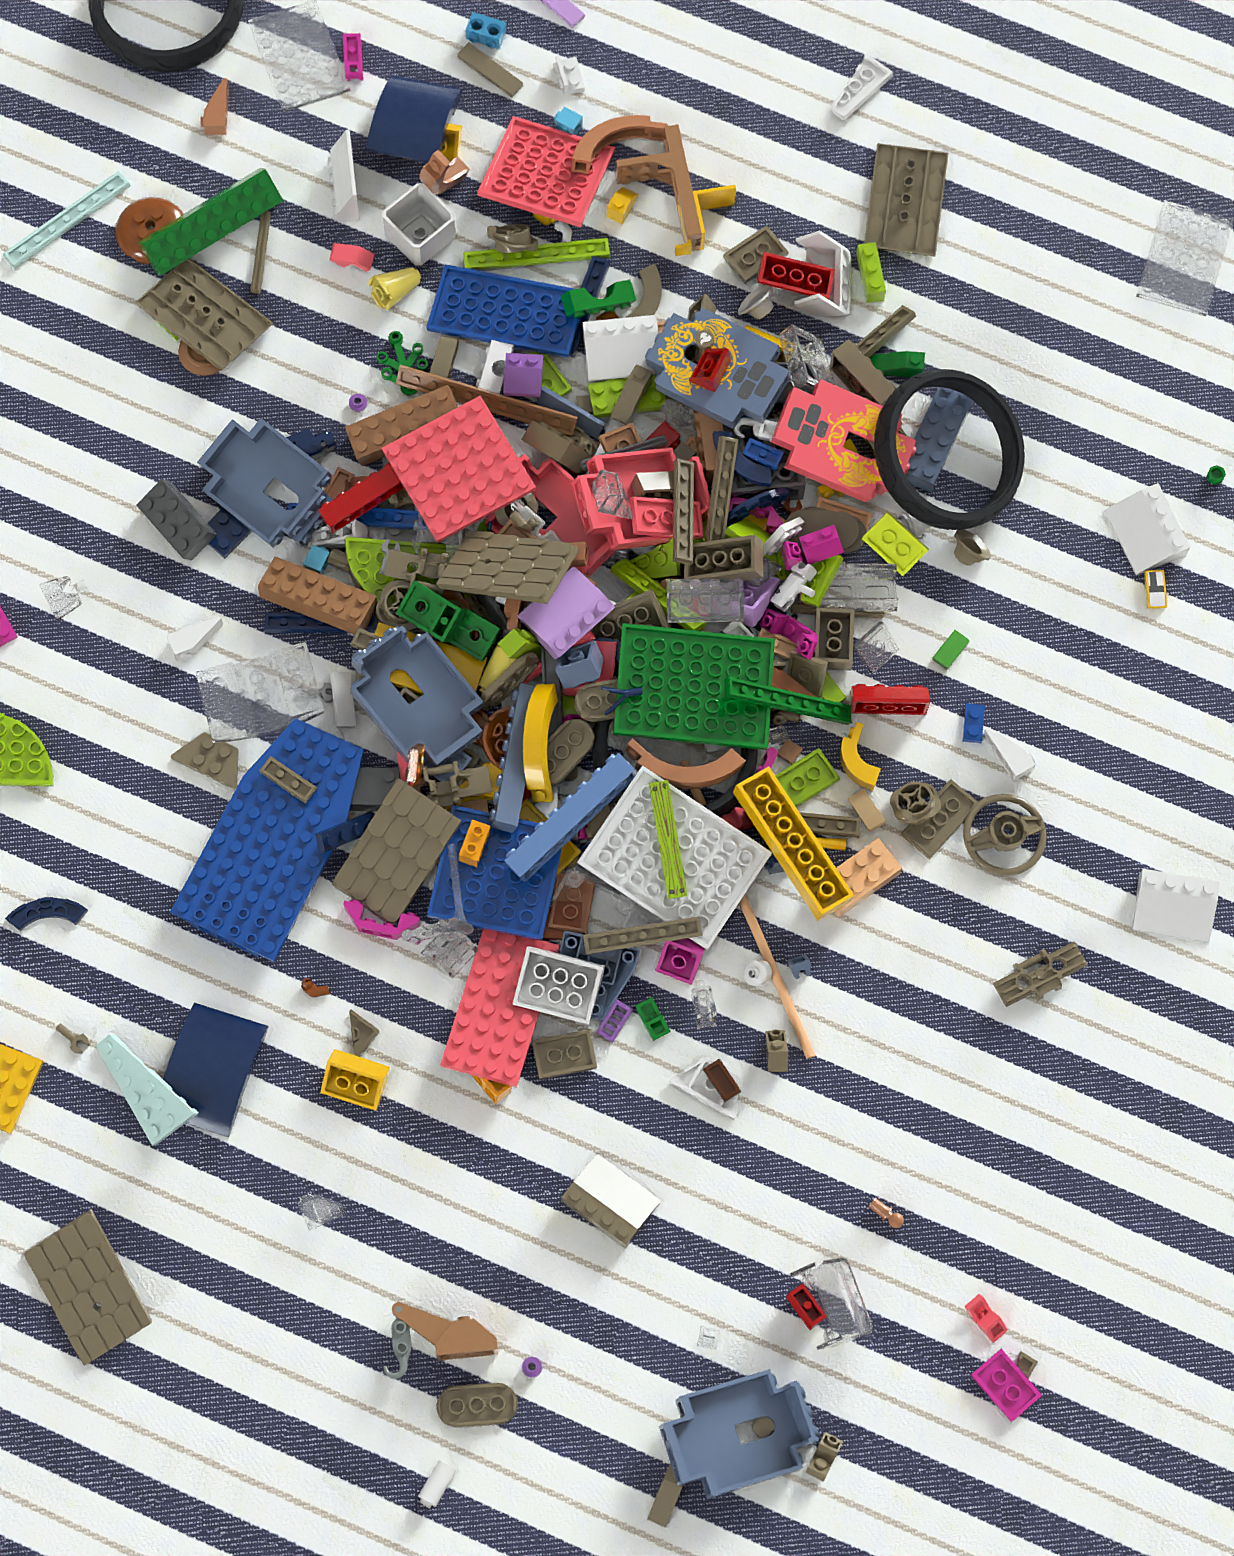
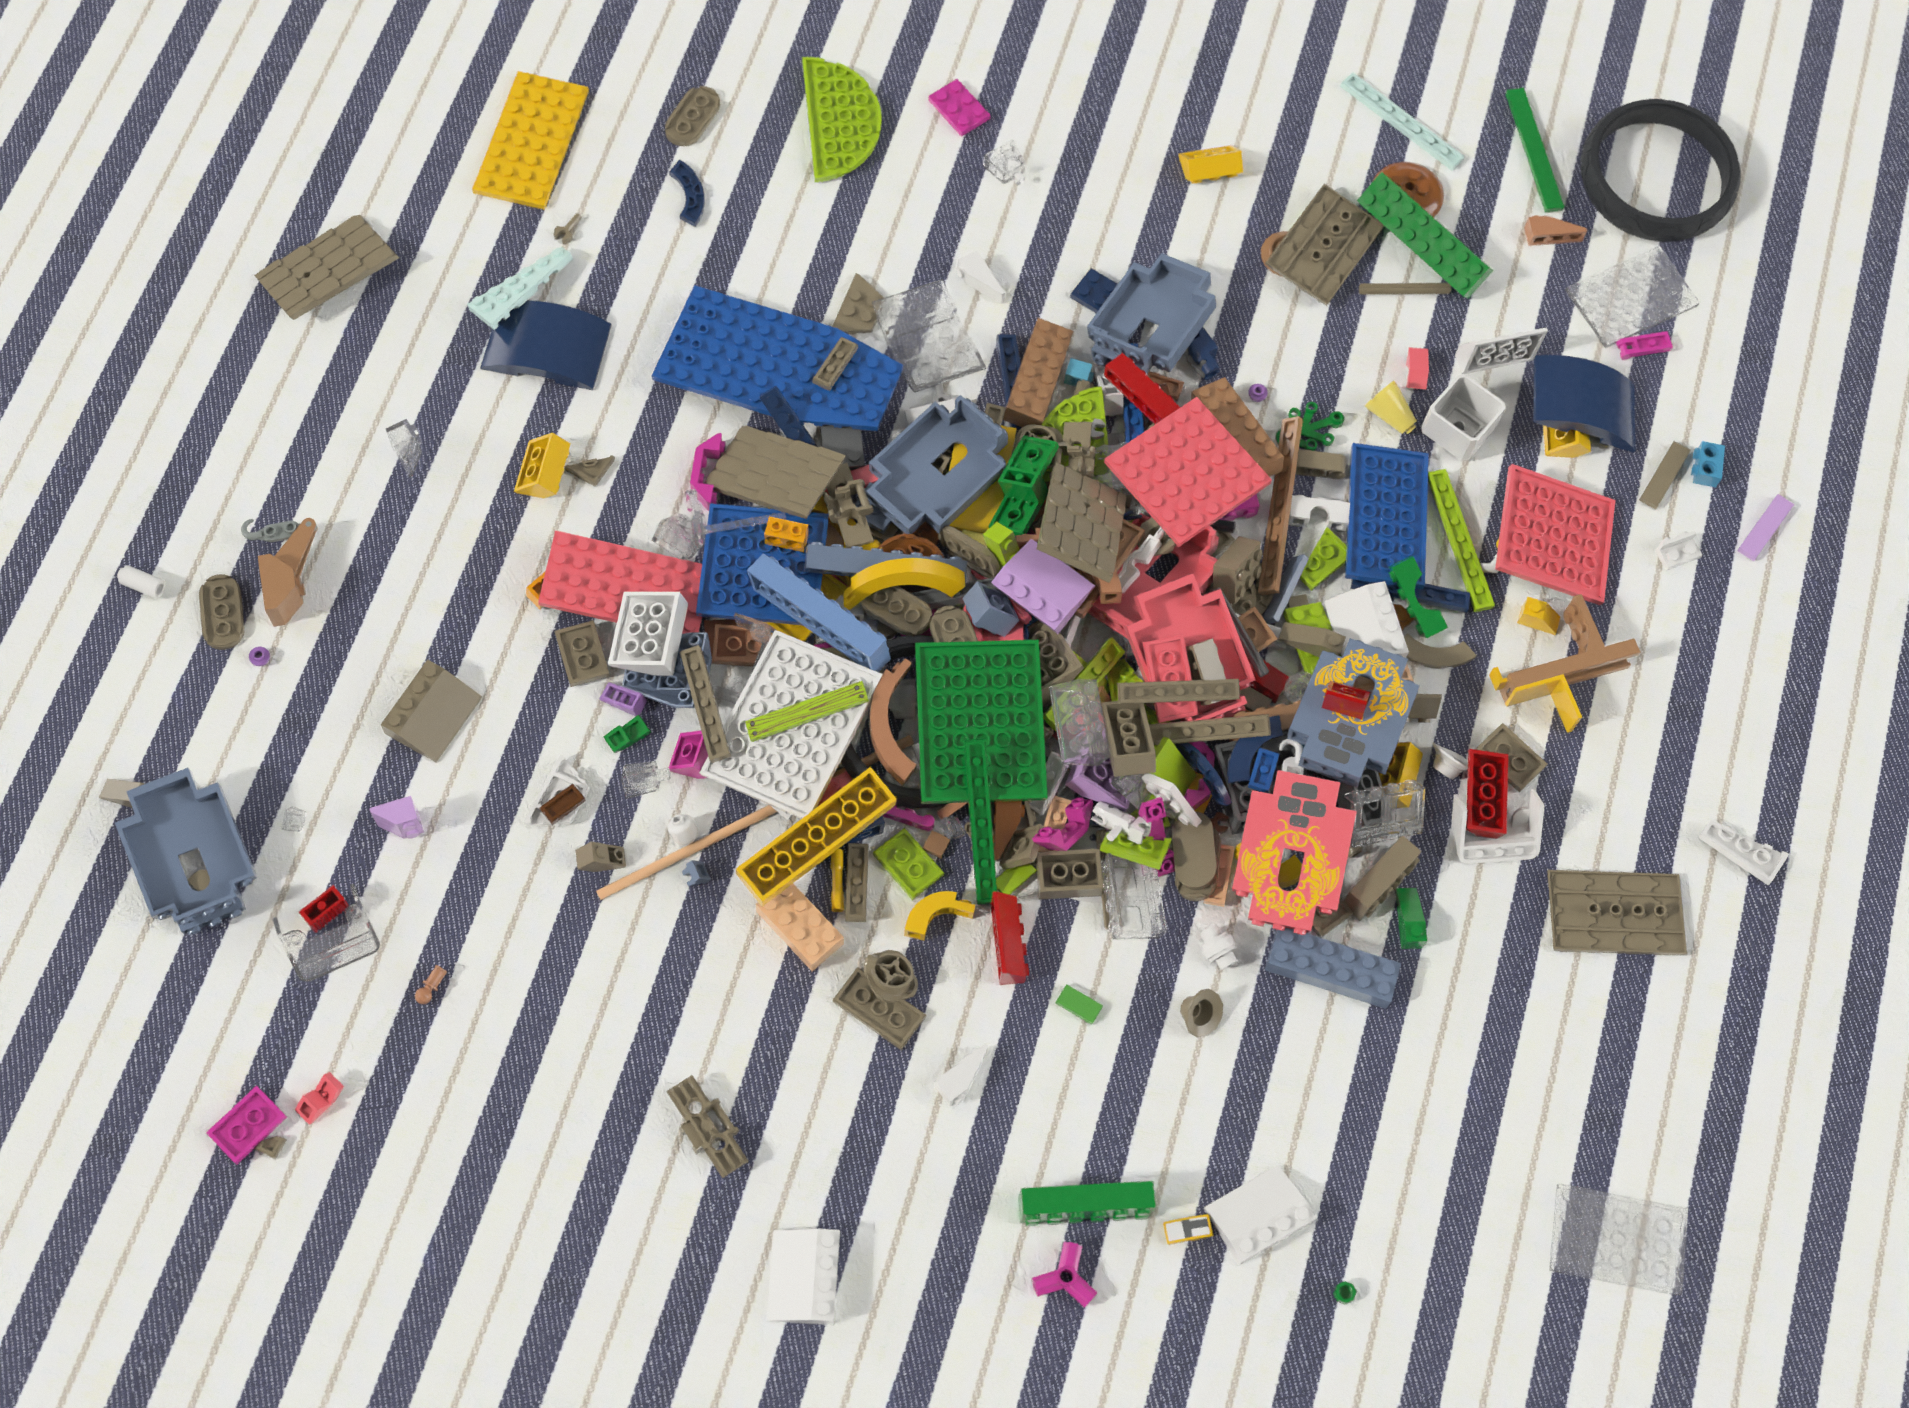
camera: 80 degrees right, 5 degrees down
(91, 402) = (1211, 163): none -> yellow slope
(119, 106) = (1534, 150): none -> green tile
(176, 519) = (1098, 244): dark grey brick -> none
(312, 990) = (632, 421): dark orange arm -> none
(414, 770) = (861, 468): clear orange plate -> none
(441, 174) = (1517, 429): nougat arch -> none
(512, 238) = (1470, 510): dark tan piece -> none
(523, 375) = (1314, 533): medium lavender slope -> none
(523, 524) = (1138, 540): dark tan arm -> none
(568, 121) = (1622, 554): medium azure brick -> none
(611, 495) = (1178, 613): clear slope -> none
(613, 131) = (1613, 587): nougat arch -> none
(626, 693) = (959, 644): dark blue plant -> none
(704, 339) = (1380, 690): dark tan tile -> none
(723, 1230) = (399, 817): none -> lavender slope
(821, 544) = (1171, 843): dark pink slope -> none
(824, 1456) = (168, 943): dark tan slope -> none
(866, 810) = (877, 927): tan slope -> none
(871, 272) = (1515, 879): lime brick -> none
(876, 647) = (1065, 919): clear tile -> none
(886, 330) = (1445, 899): dark tan plate -> none
(895, 543) = (1190, 927): neon yellow plate -> none
(973, 723) = (995, 1035): blue plate -> none
(994, 836) = (873, 1090): dark tan piece -> none
(1006, 428) = (1364, 1028): black tyre -> none
(1131, 664) = (1085, 1202): none -> green brick
(1198, 685) = (1069, 1263): none -> dark pink piece

